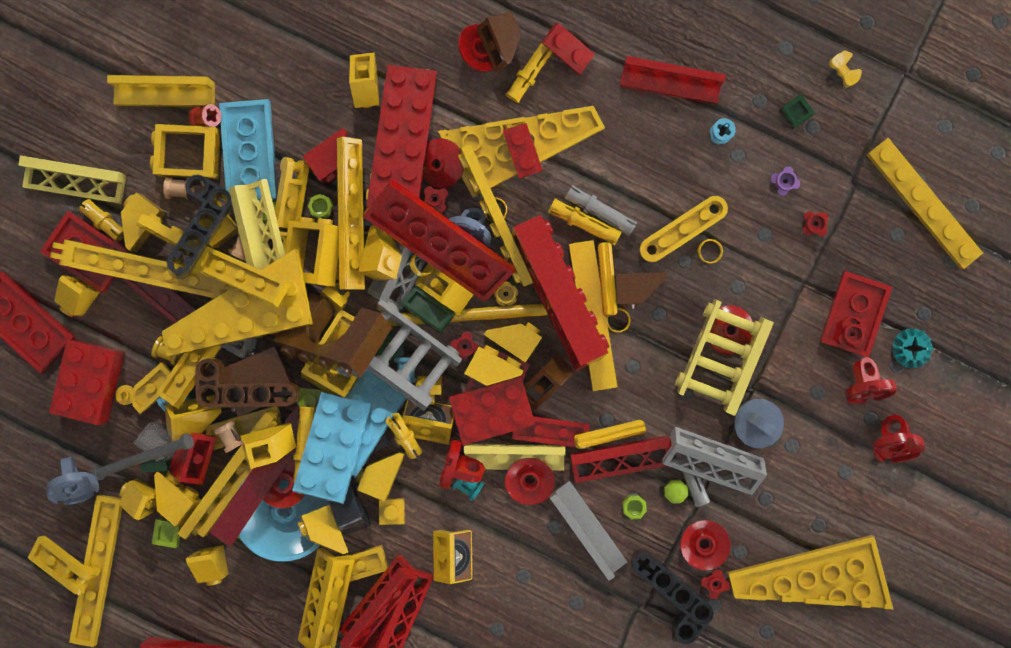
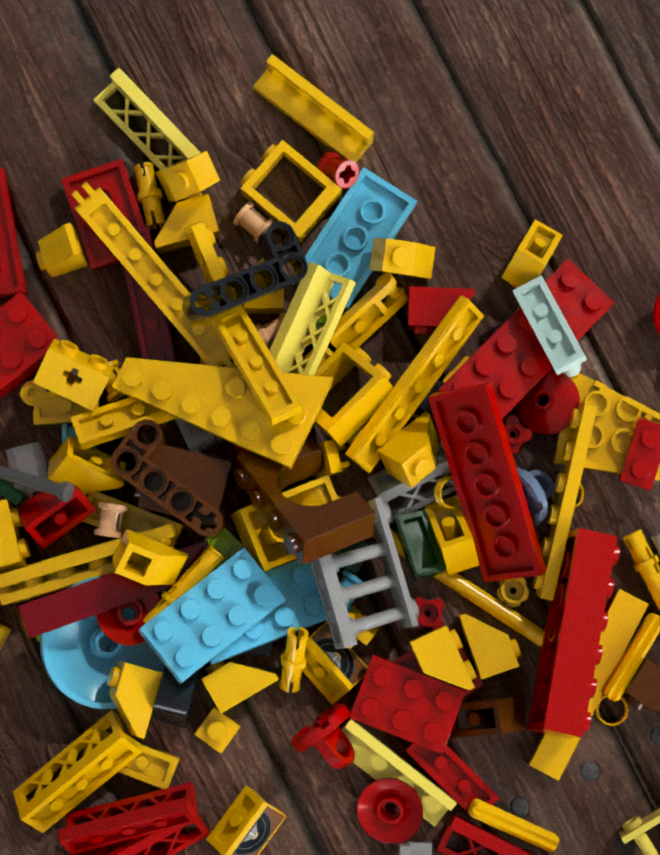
camera: 30 degrees right, 5 degrees down
(114, 191) = (187, 177): none -> yellow slope
(126, 372) = (57, 375): none -> yellow brick
(285, 141) = (402, 258): none -> yellow slope
(320, 206) = (387, 351): lime tile -> none
(406, 116) = (550, 327): none -> light aqua piece
(468, 488) = (318, 766): teal bush -> none

